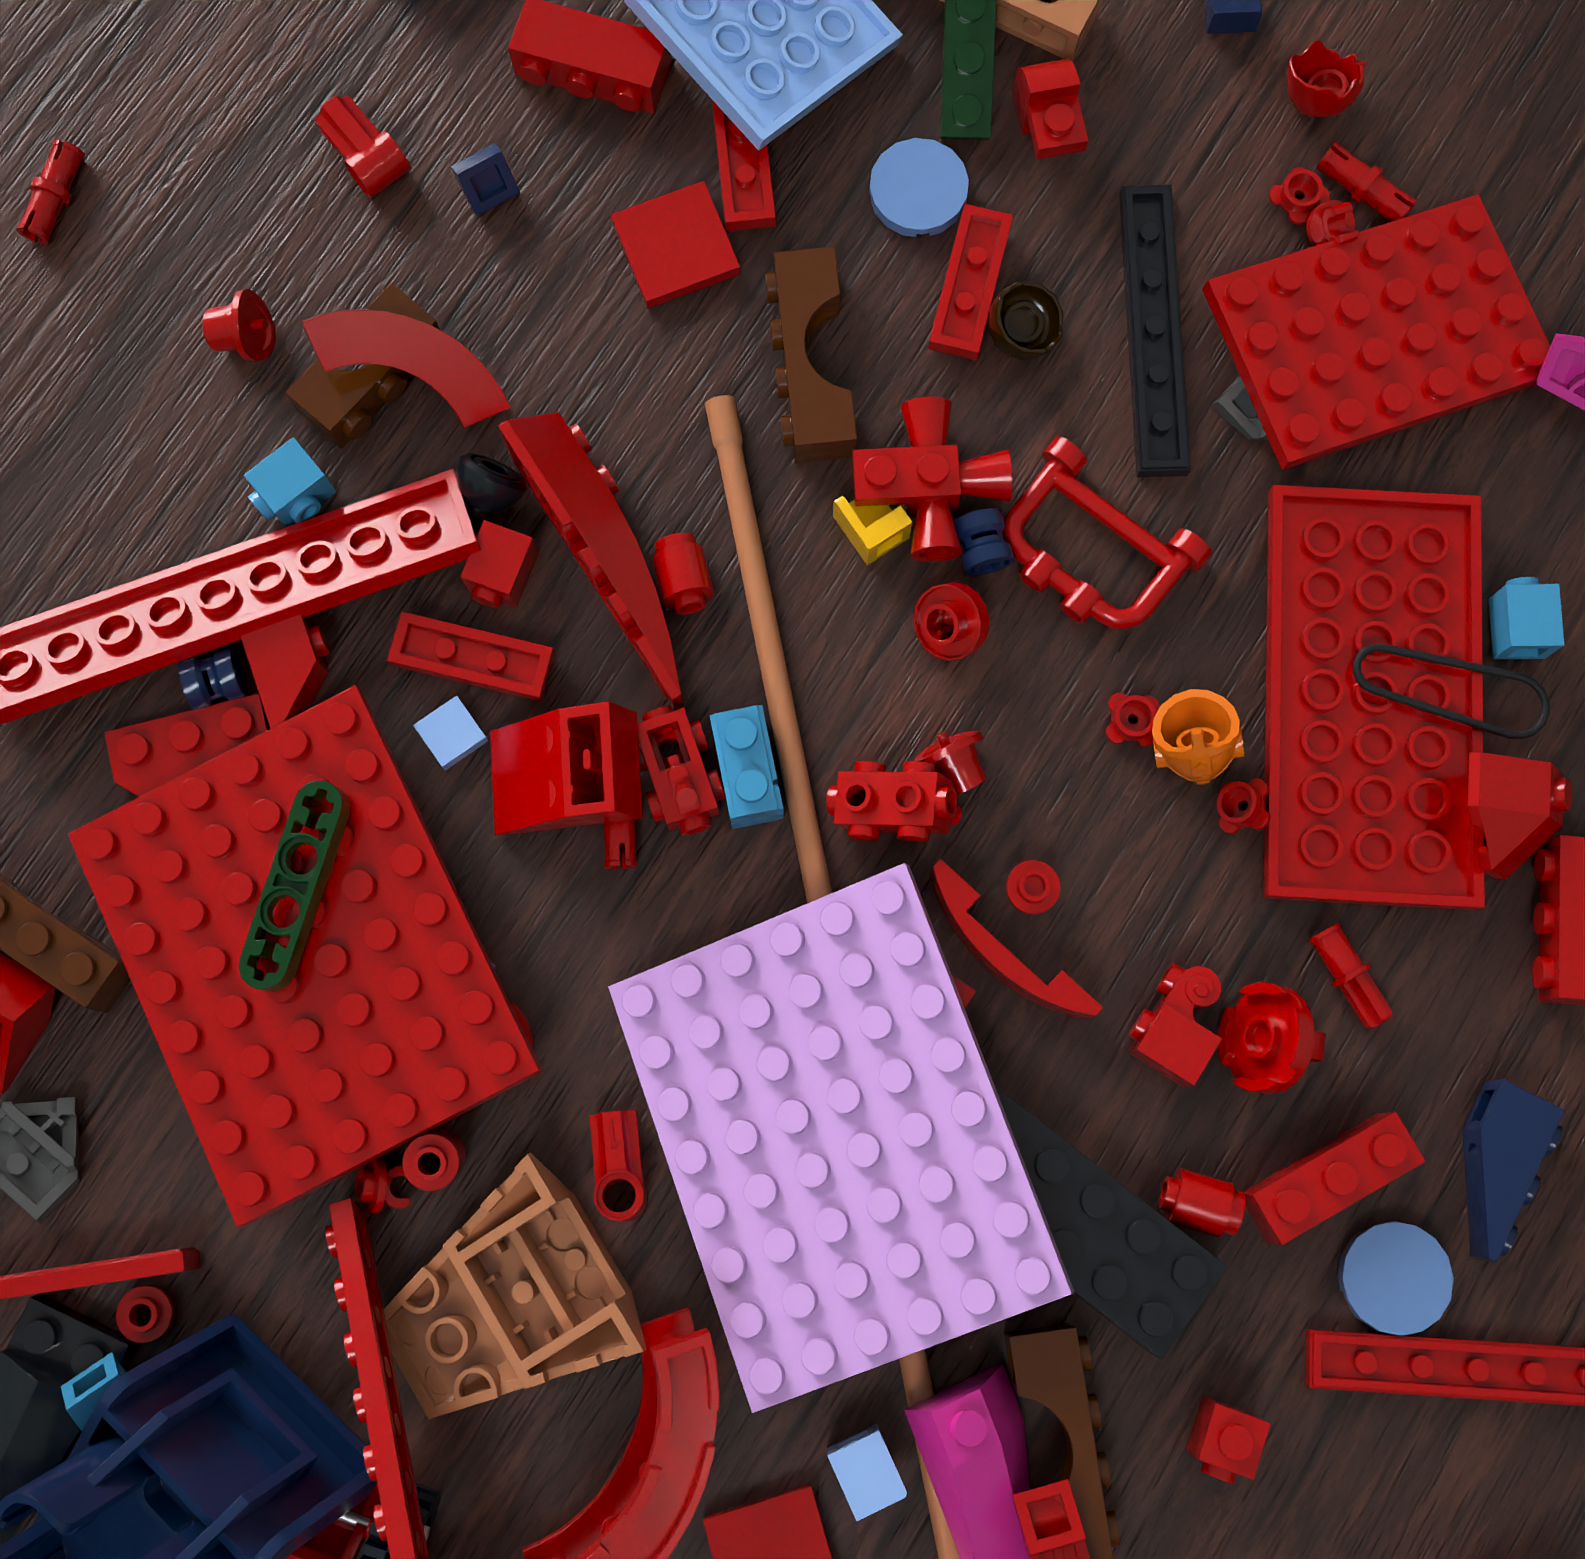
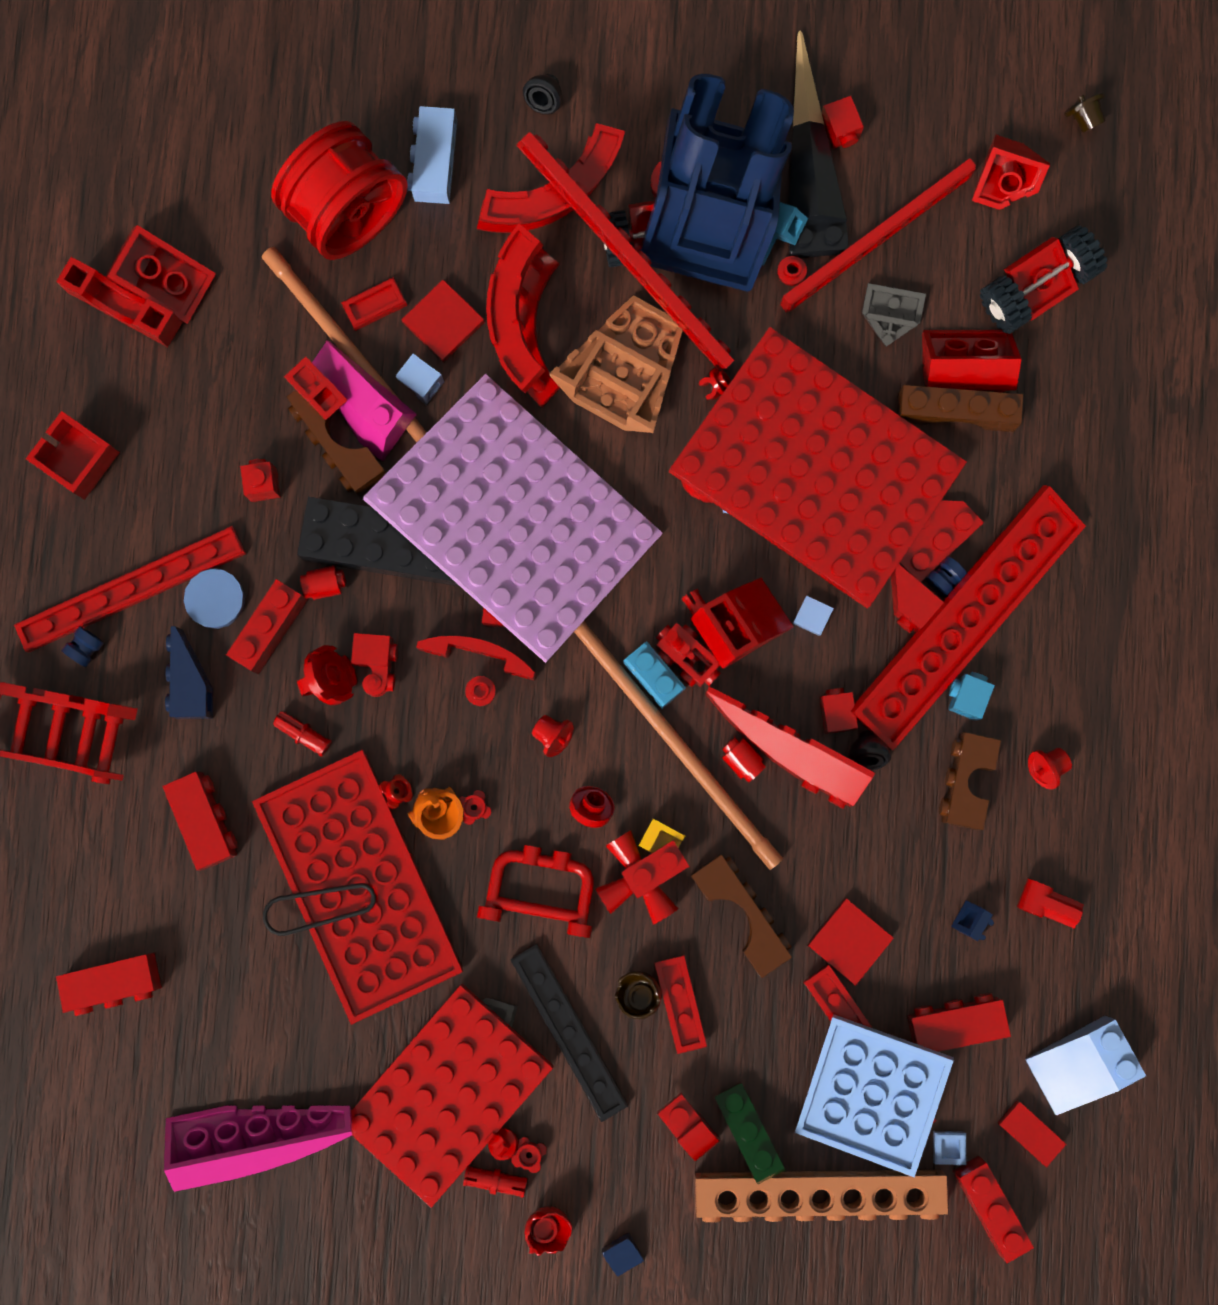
camera: 155 degrees right, 5 degrees up
(50, 192) = (1199, 789): red pin -> none
(285, 883) = (831, 492): dark green beam -> none
(411, 346) = (951, 797): red tile -> none
(446, 1147) = (696, 406): red brick -> none
(471, 656) = (825, 658): red plate -> none
(616, 1160) = (611, 454): red piece -> none
(895, 802) = (563, 698): red brick -> none
(918, 187) = (738, 1047): medium blue tile -> none
(983, 542) = (592, 854): dark blue wheel -> none
(1515, 808) = (260, 857): red slope -> none
(1526, 620) = (297, 966): dark azure brick -> none

